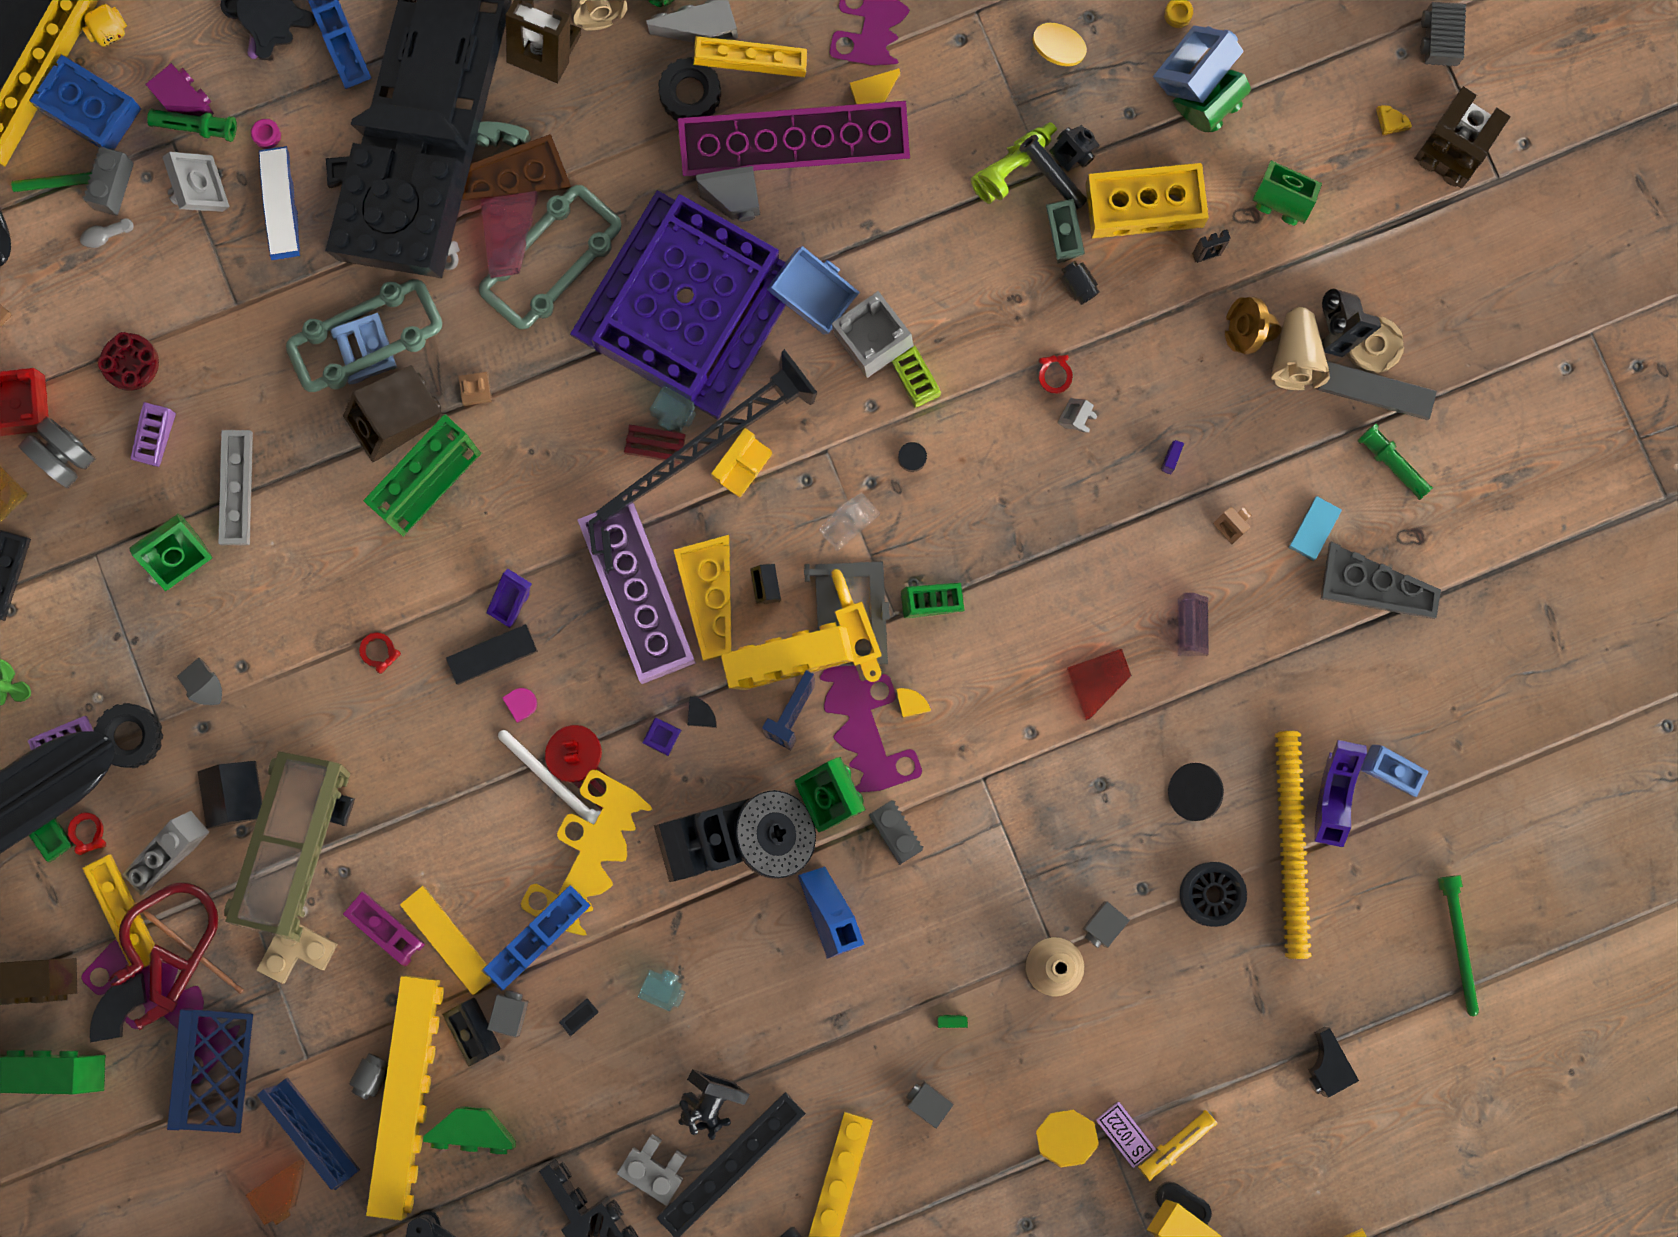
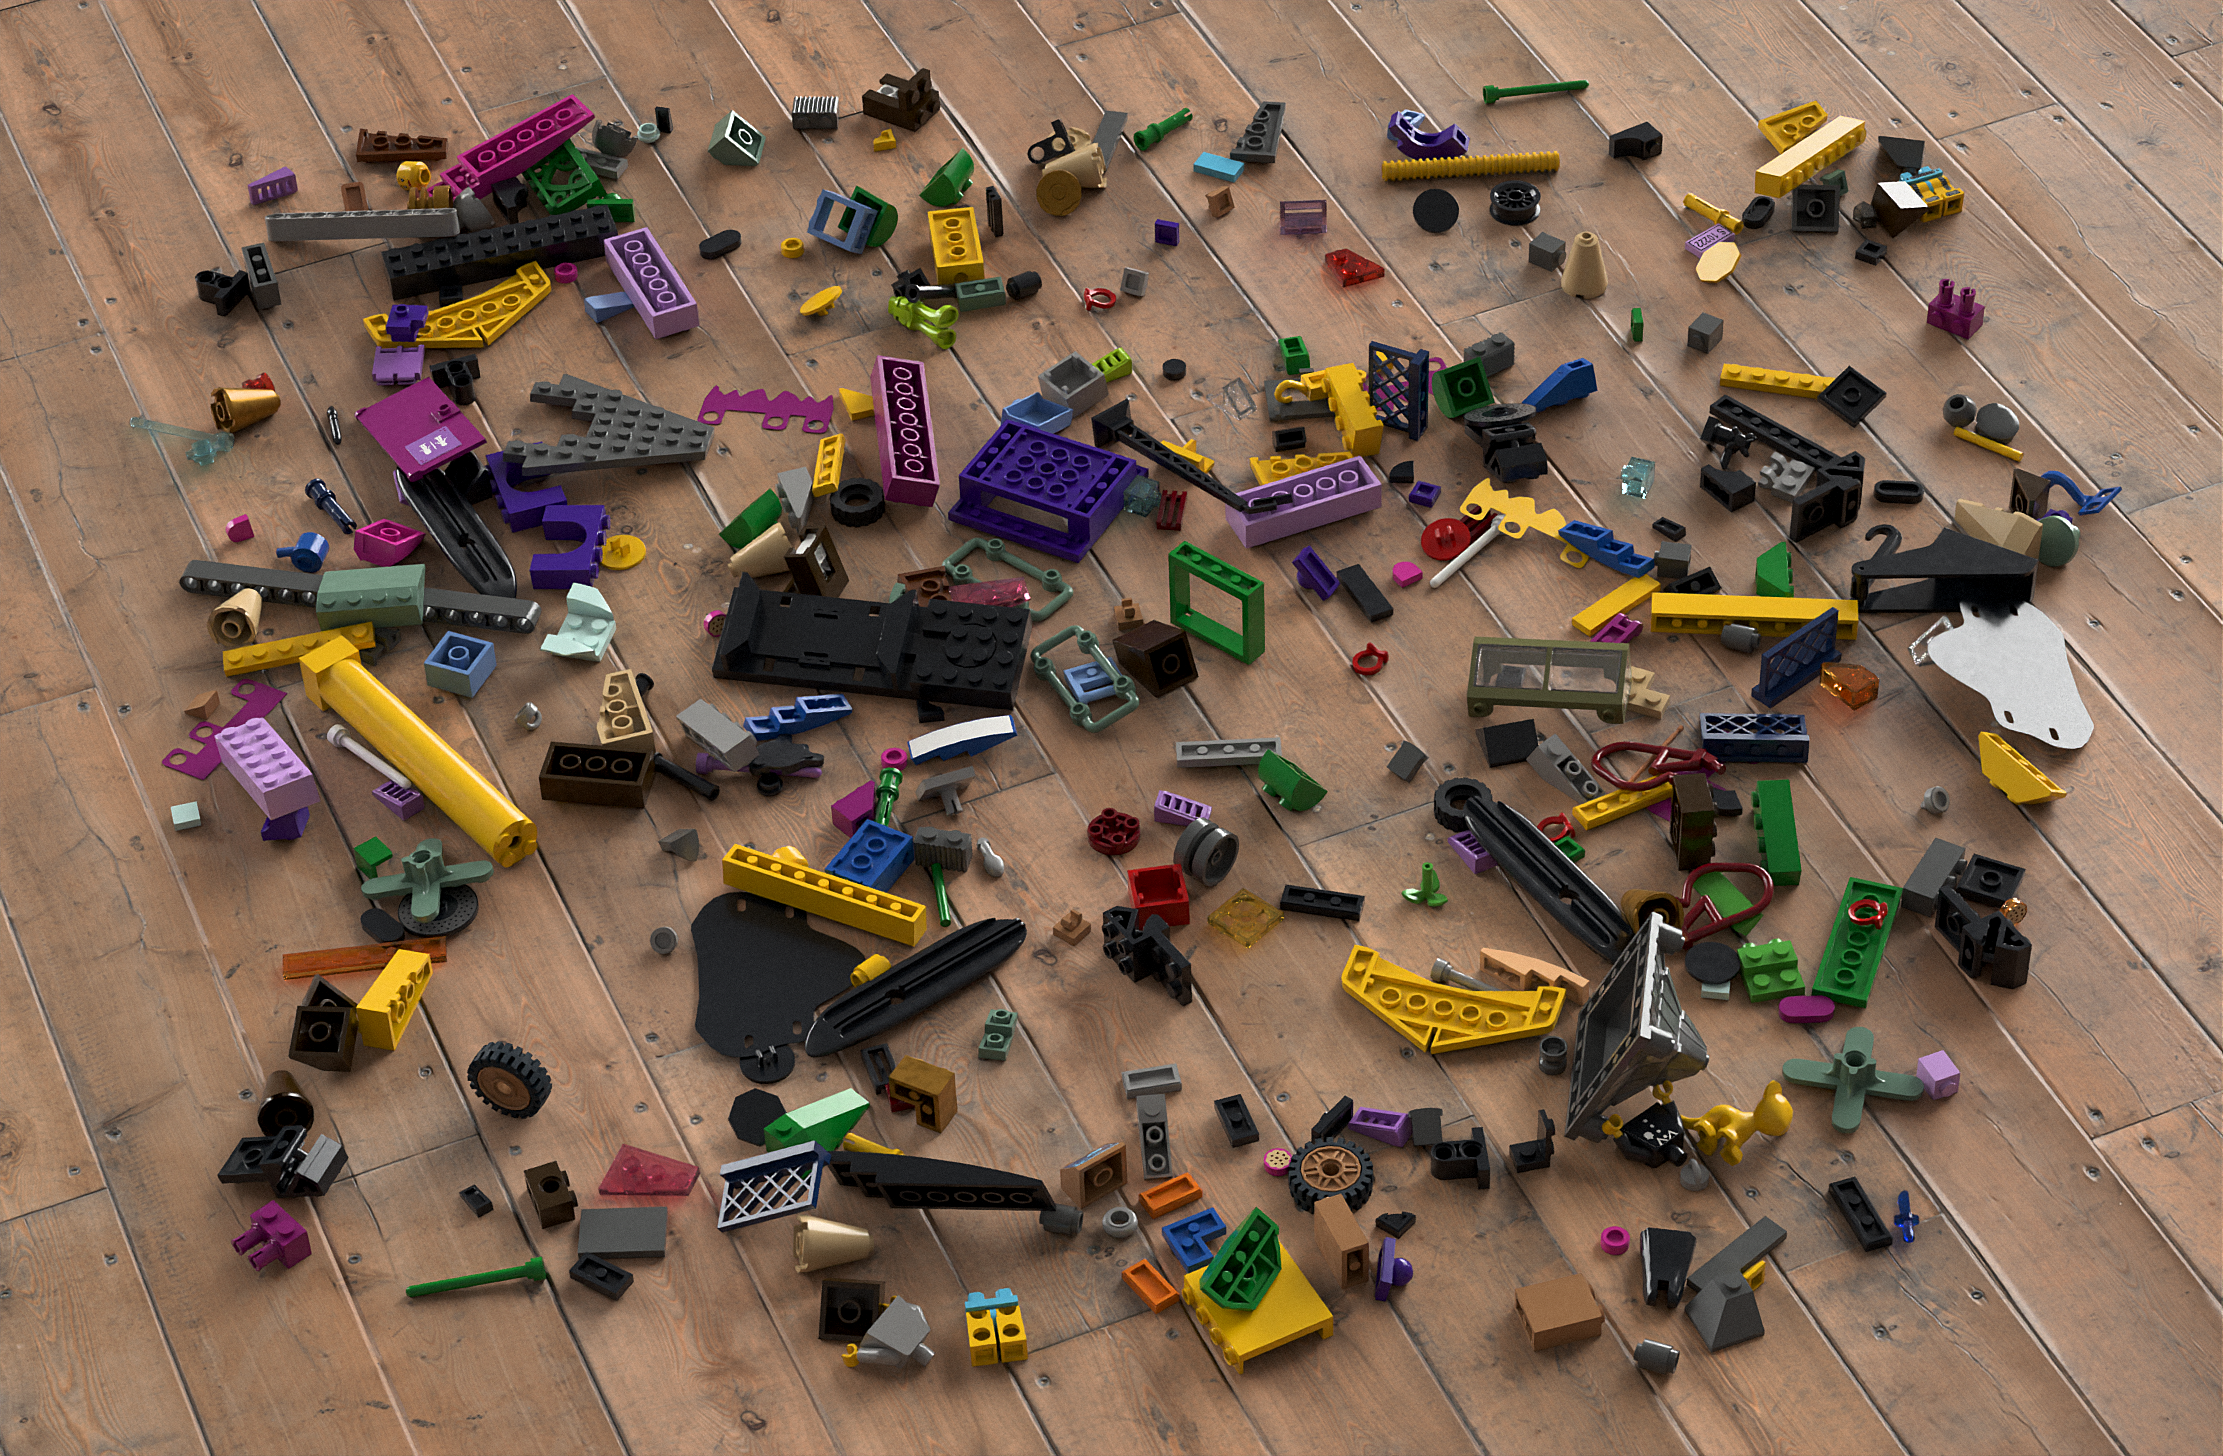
camera: 90 degrees left, 40 degrees down
(630, 1100) = (1728, 488): none -> black arch
(731, 192) = (951, 462): dark grey slope -> none

